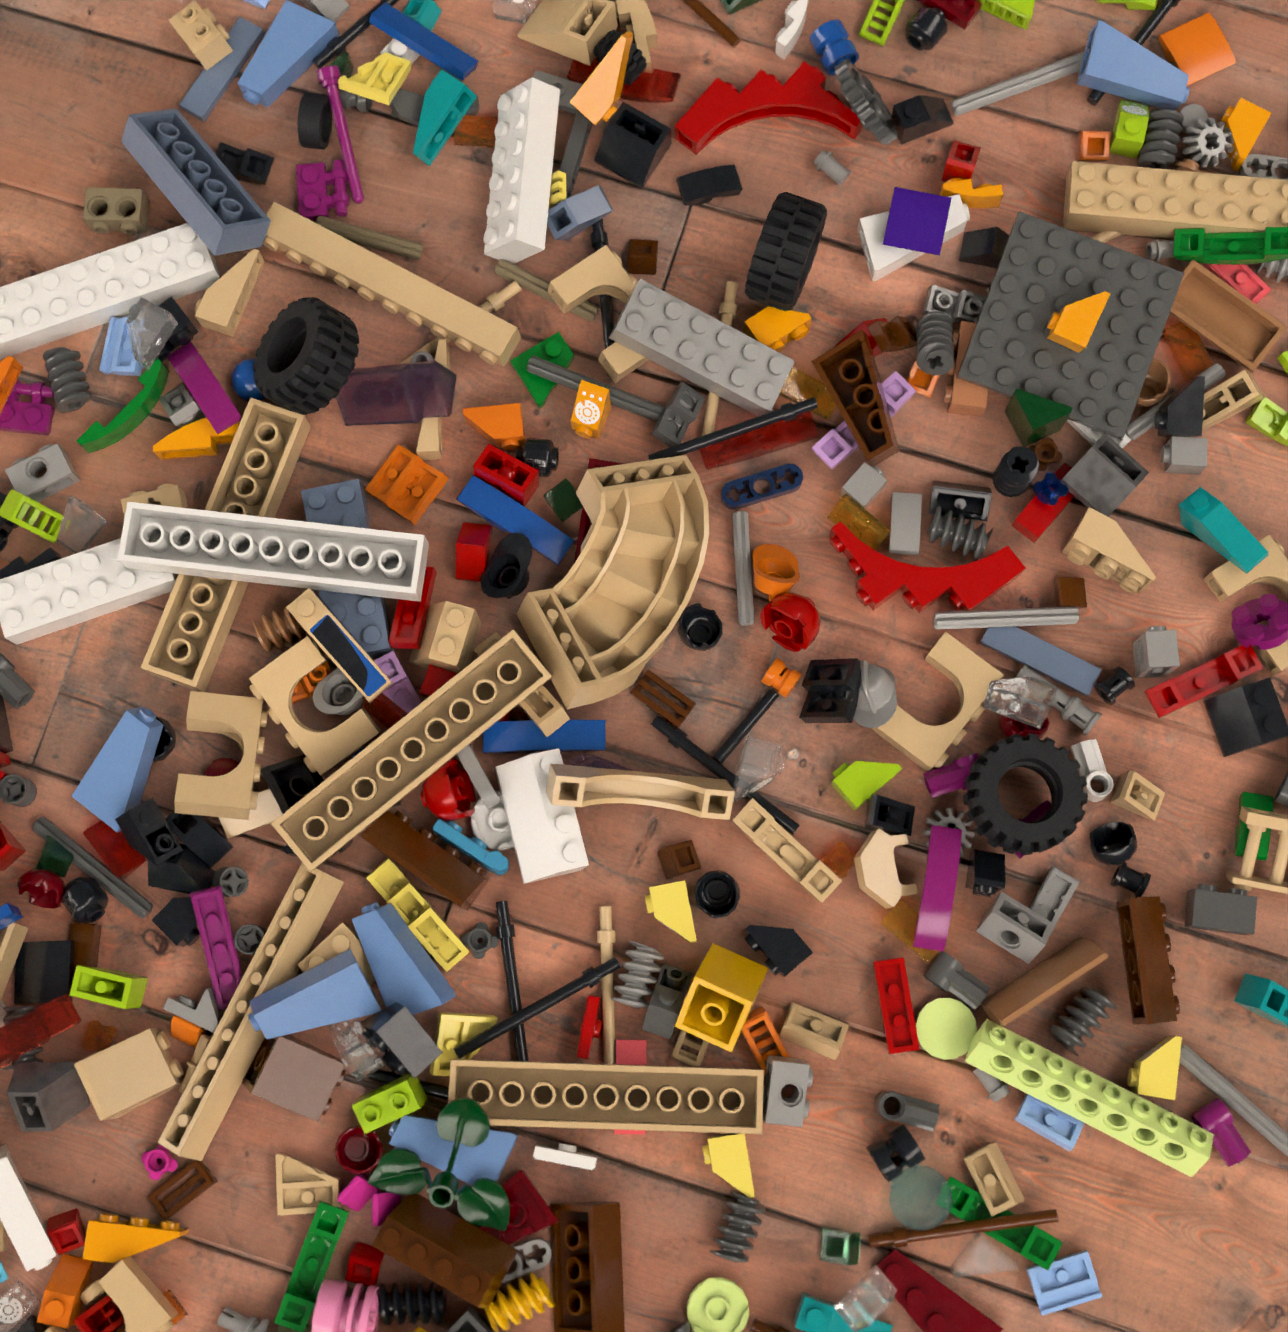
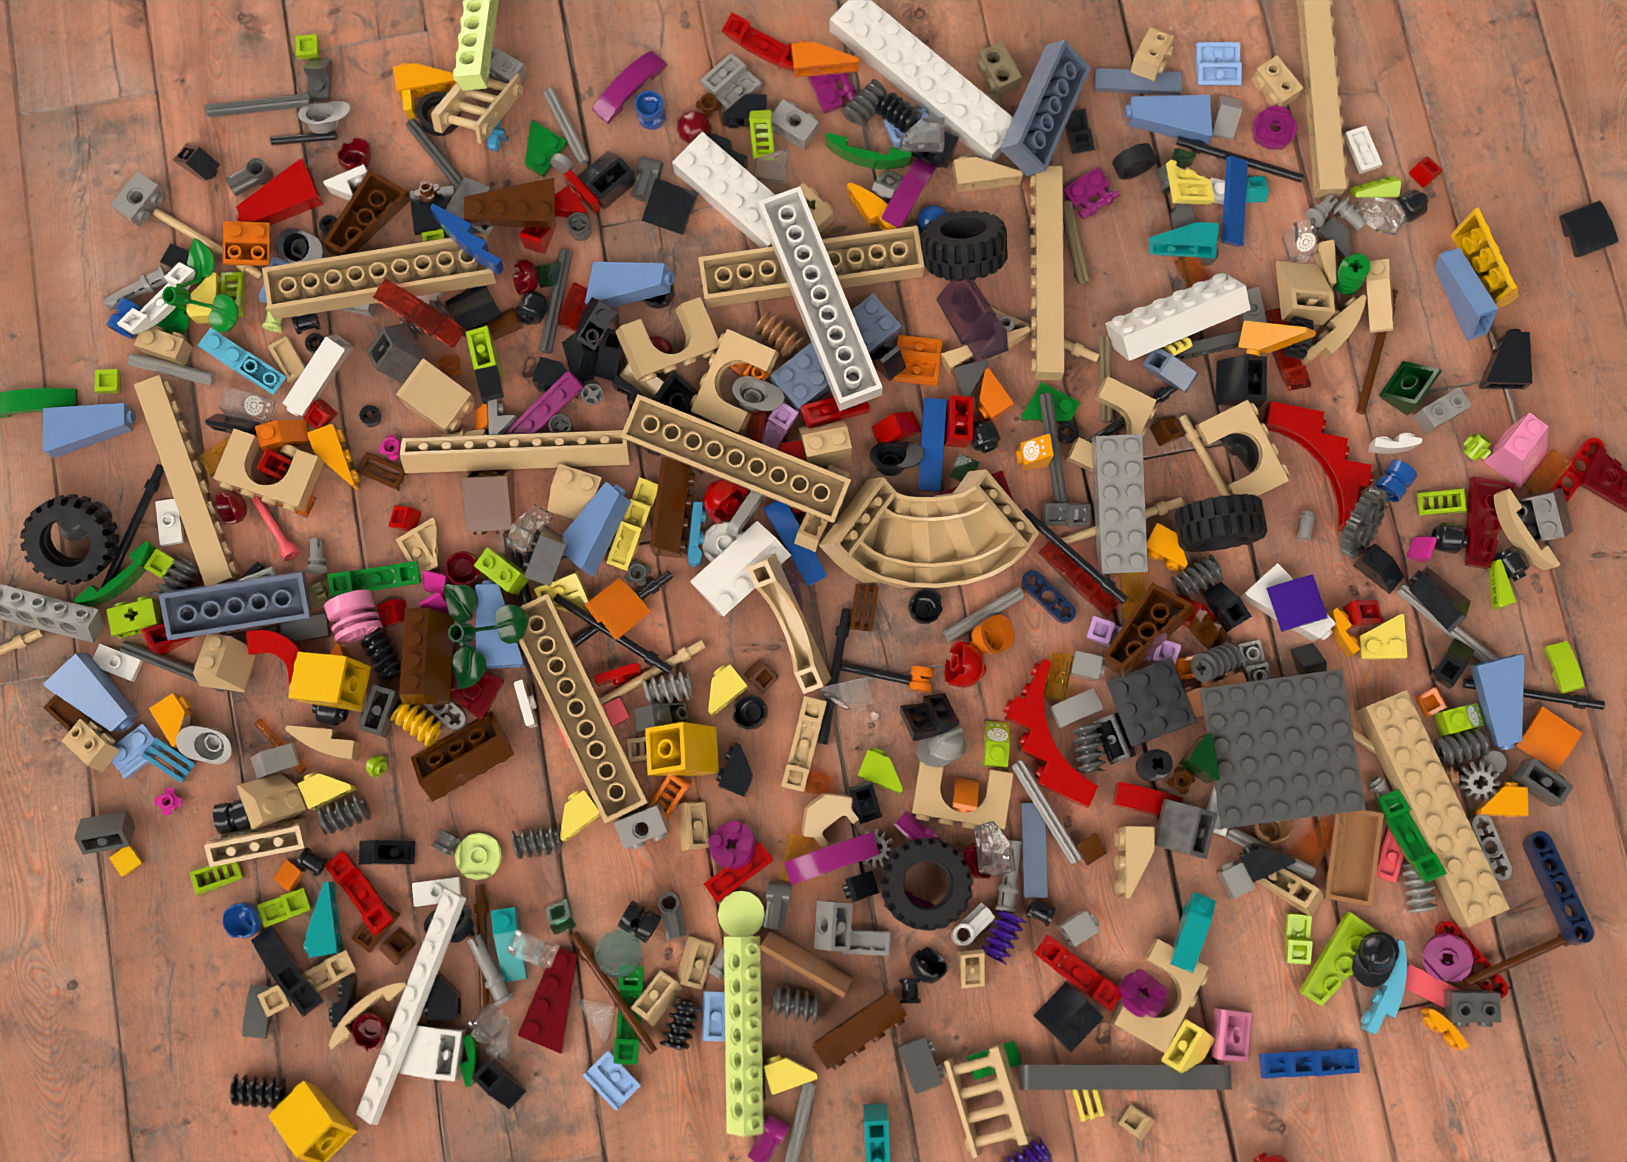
camera: 55 degrees right, 0 degrees up
(56, 670) = (670, 206): none -> black slope
(99, 1161) = (367, 422): none -> black bush
(102, 348) = (897, 112): none -> black piece
(151, 998) = (489, 383): none -> black slope
(252, 835) = (626, 388): none -> black slope
(256, 1191) = (404, 518): none -> red slope
(315, 999) = (543, 486): medium blue slope -> none
(329, 78) = (1169, 153): magenta piece -> none
(339, 644) = (781, 373): slope -> none
(391, 514) = (889, 361): none -> black slope
(459, 437) = (969, 376): none -> dark grey slope
(510, 985) = (617, 608): none -> orange slope
(582, 356) = (1072, 428): none -> black bush
(665, 231) = (1194, 437): none -> tan bar
(751, 171) = (1244, 420): none -> tan arch
(827, 312) = (1197, 576): none -> dark grey piece
(874, 1008) = (723, 836): none -> magenta plate
(878, 299) = (1226, 606): none -> black slope
(900, 633) = (996, 745): none -> lime slope
(923, 62) = (1421, 548): none -> dark pink slope
(941, 696) = (965, 794): none -> orange slope
(943, 436) = (1152, 702): none -> black plate
(974, 1112) = (695, 962): none -> tan slope
(990, 72) = (1439, 598): none -> black slope
(1002, 156) = (1384, 641): none -> light yellow wing
(1040, 1164) = (681, 1024): none -> black piece
(1047, 495) = (1148, 797): clear blue plate -> none
(1067, 100) = (1452, 664): none -> black slope
(1077, 321) = (1283, 750): light orange slope -> none
(1121, 741) = (1003, 936): none -> dark purple piece
(1242, 80) = (1542, 782): none -> dark grey brick

